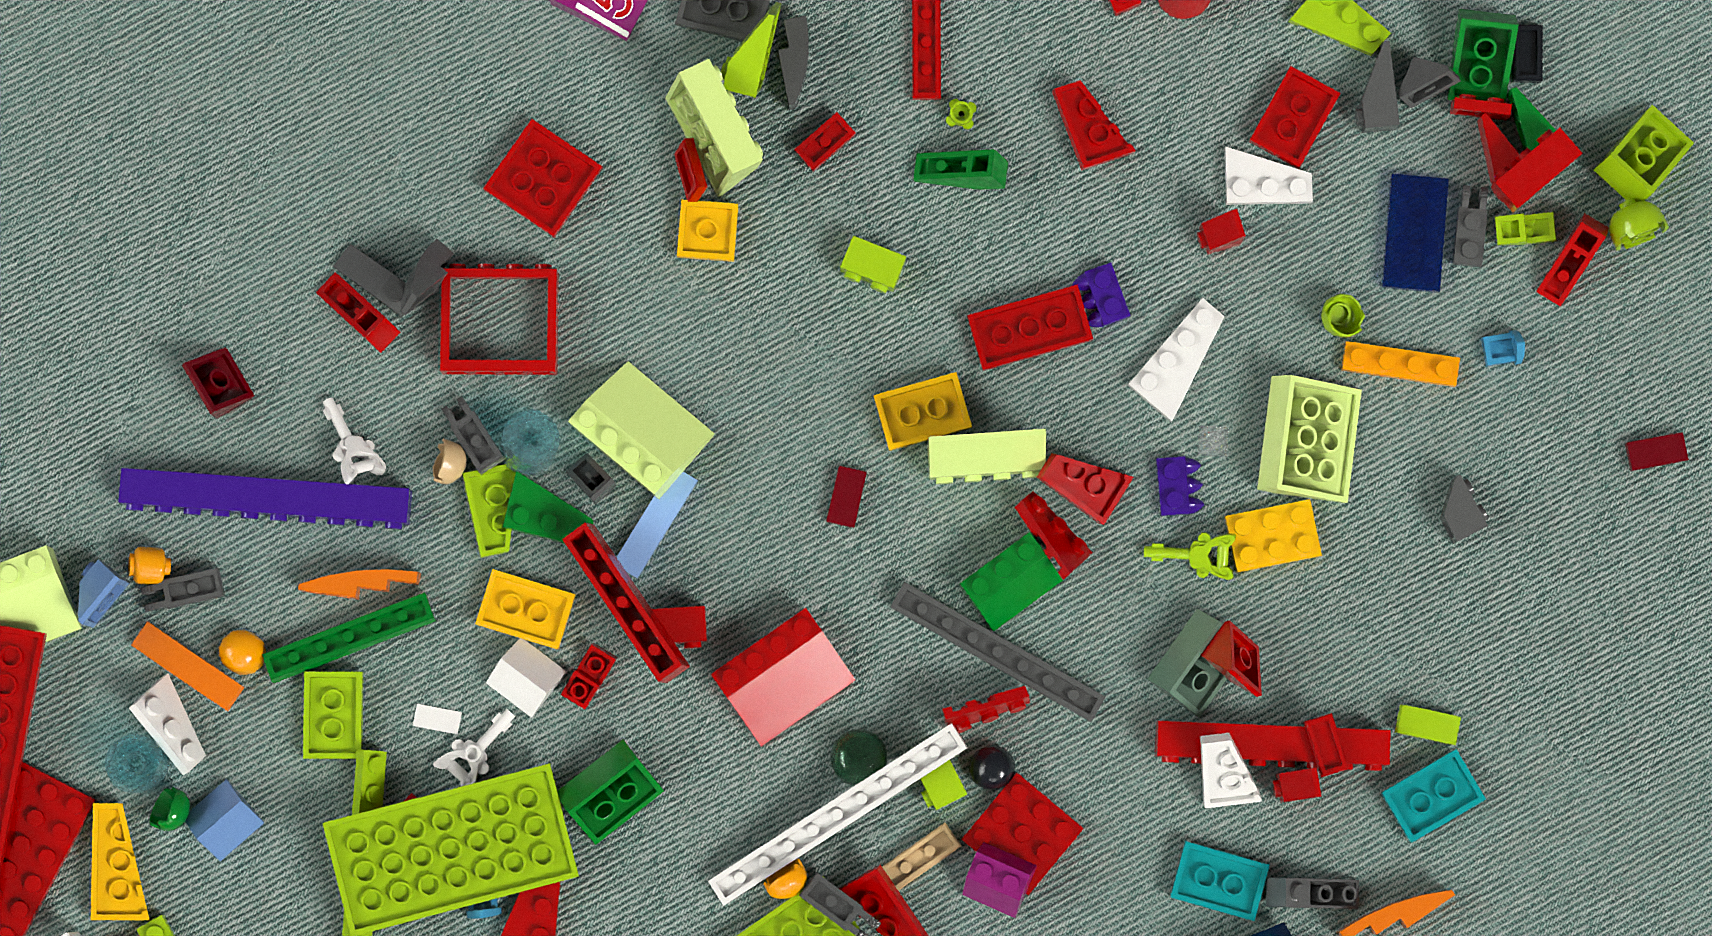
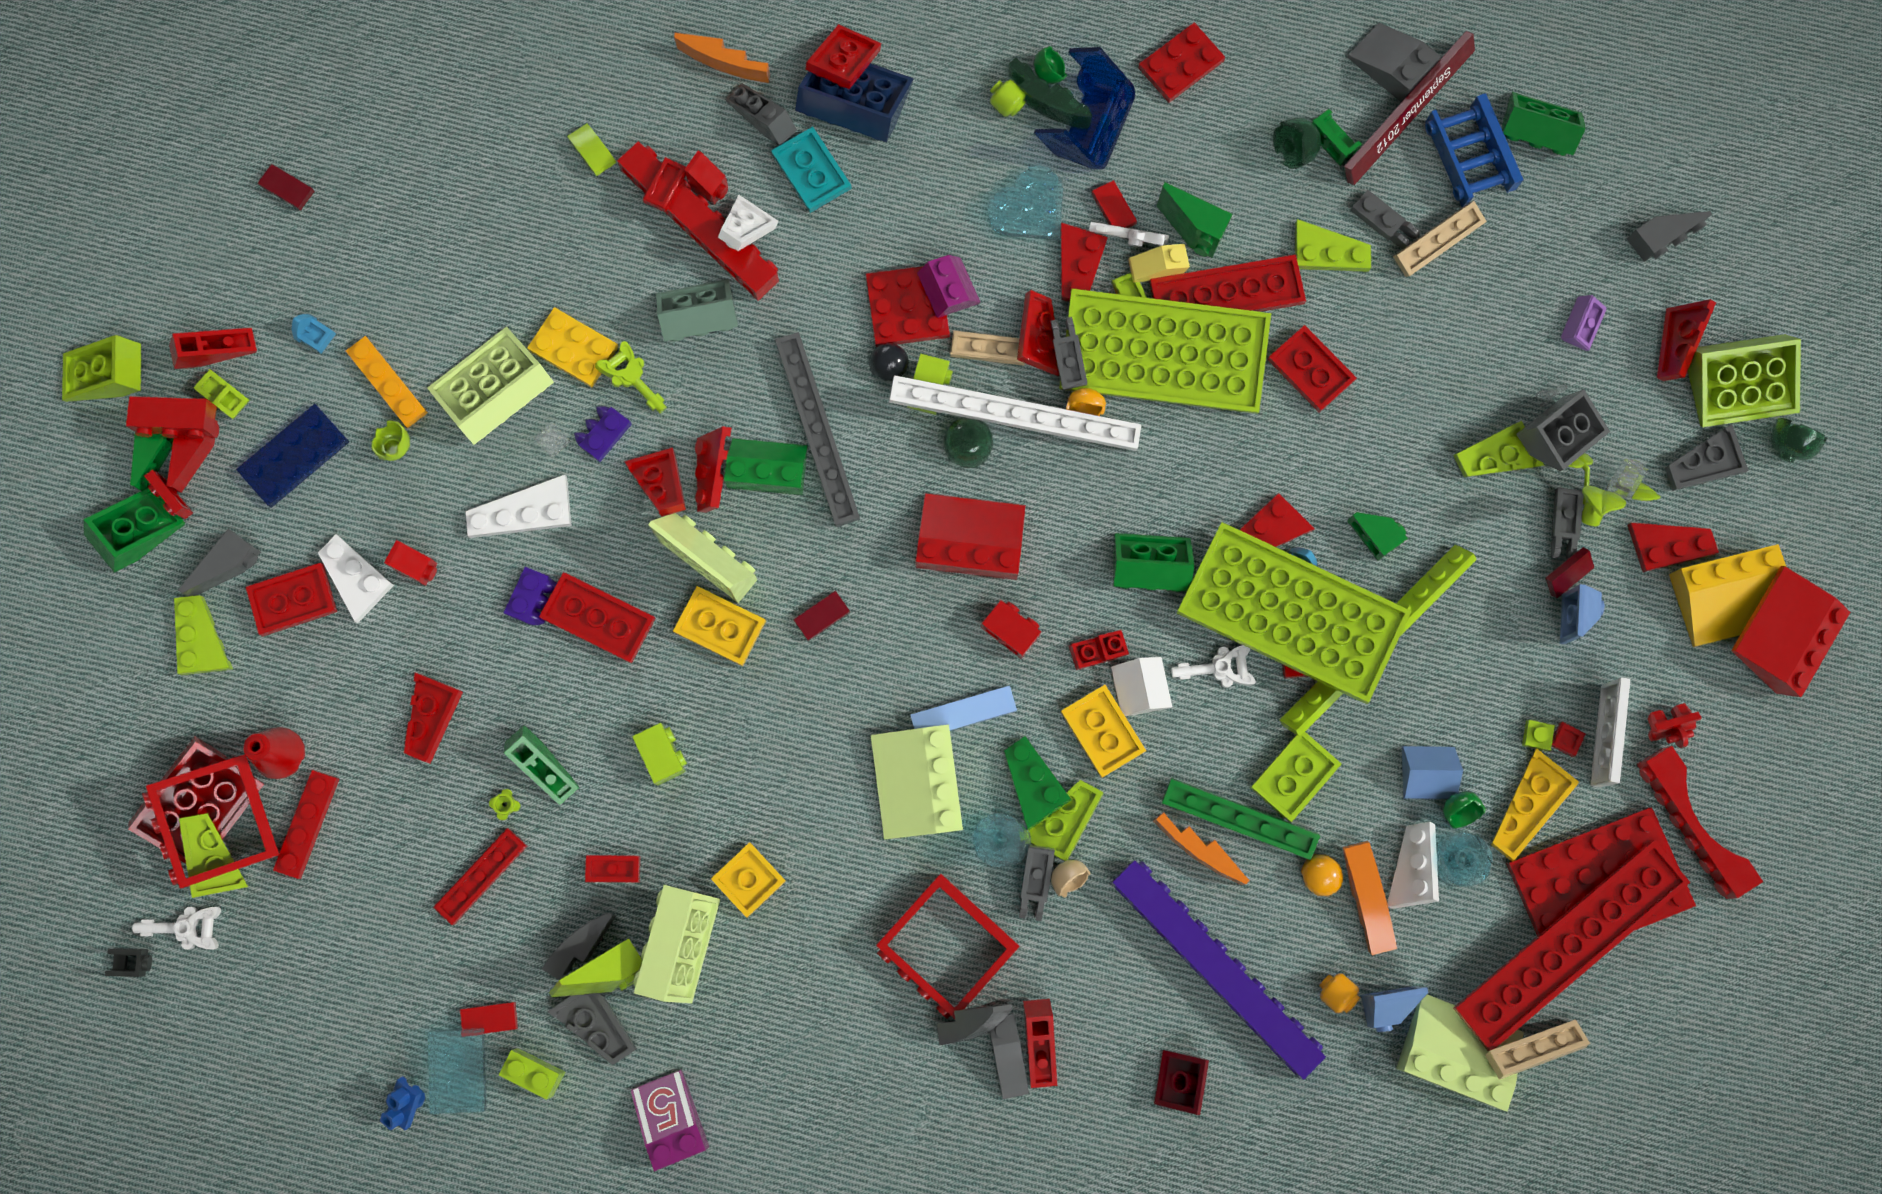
camera: 140 degrees left, 5 degrees down
(186, 590) = (1326, 952): dark grey hinge -> none
(352, 447) = (1126, 949): white piece -> none
(437, 719) = (1225, 713): white sticker -> none
(542, 178) = (827, 1022): red plate -> none
(591, 478) = (980, 779): dark grey slope -> none
(626, 602) = (1033, 667): red brick -> none
(690, 170) = (721, 931): red tile -> none
(976, 711) = (858, 396): red wing -> none
(1235, 658) = (670, 287): red slope -> none
(1425, 80) = (182, 544): dark grey slope -> none
(1433, 796) = (630, 105): teal plate -> none
(1460, 512) = (441, 255): dark grey slope -> none
(1470, 230) = (255, 426): dark grey hinge -> none
(1528, 55) = (109, 495): black tile -> none
(1636, 223) = (147, 330): lime cylinder -> none

